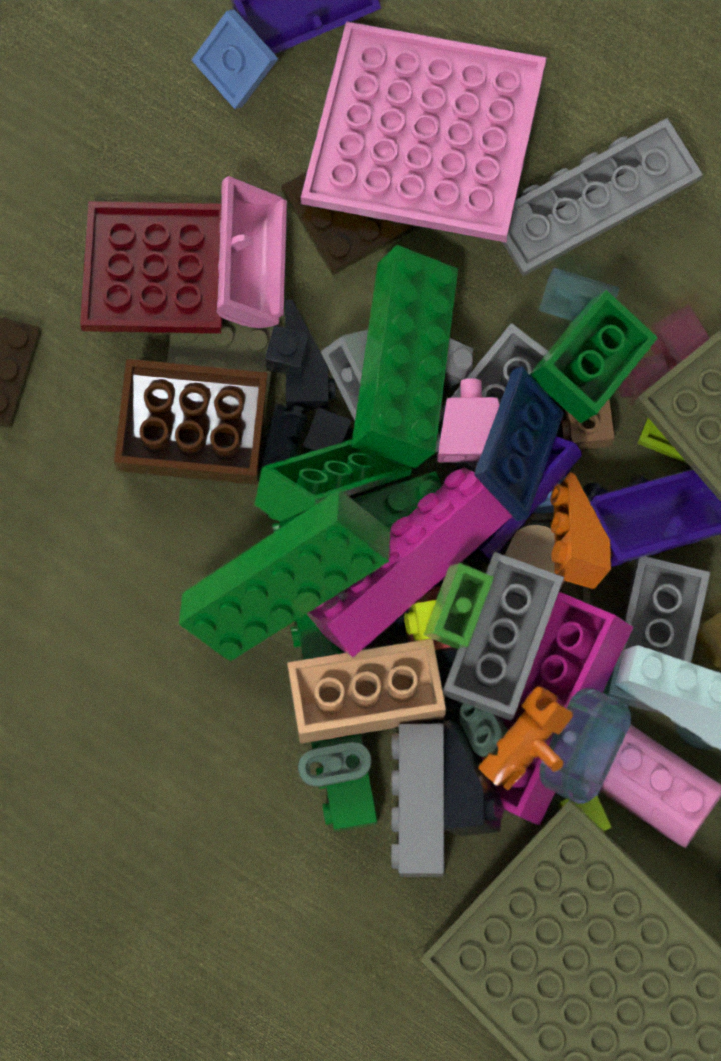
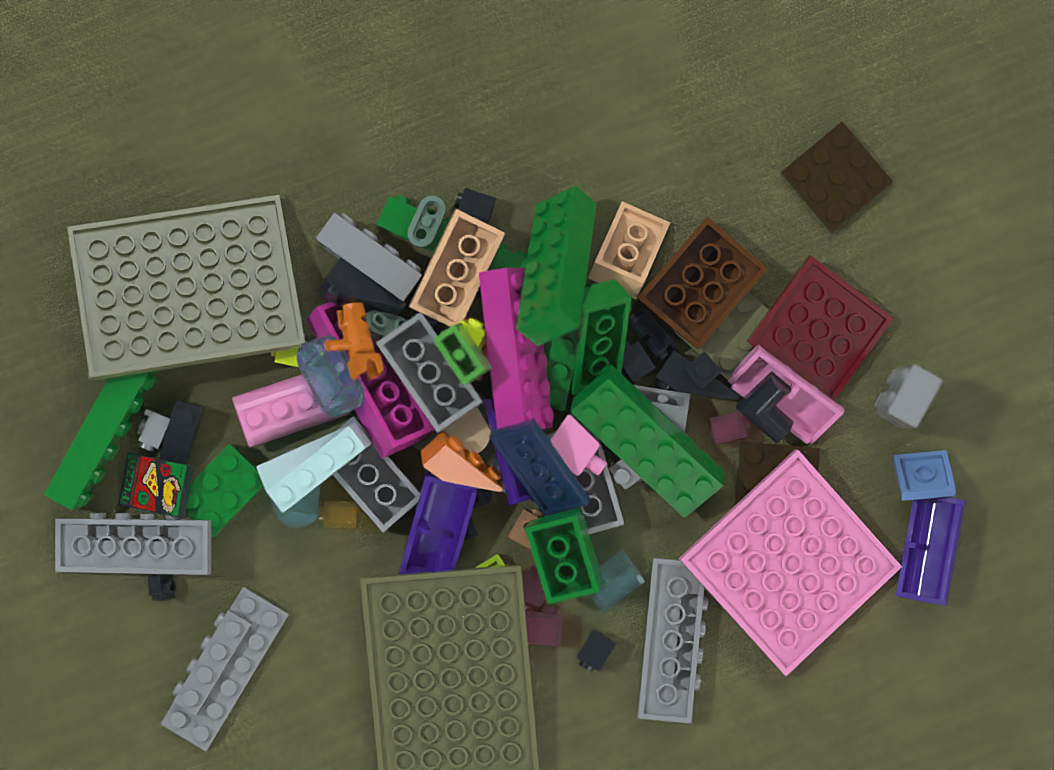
camera: 130 degrees right, 10 degrees up
(163, 118) = (907, 396): none -> light grey brick
(207, 526) = (629, 248): none -> light nougat slope
(277, 728) = (475, 204): none -> black brick
(281, 266) = (761, 408): none -> black brick
(327, 292) = (728, 427): none -> clear pink brick
(664, 269) = (595, 651): none -> black brick

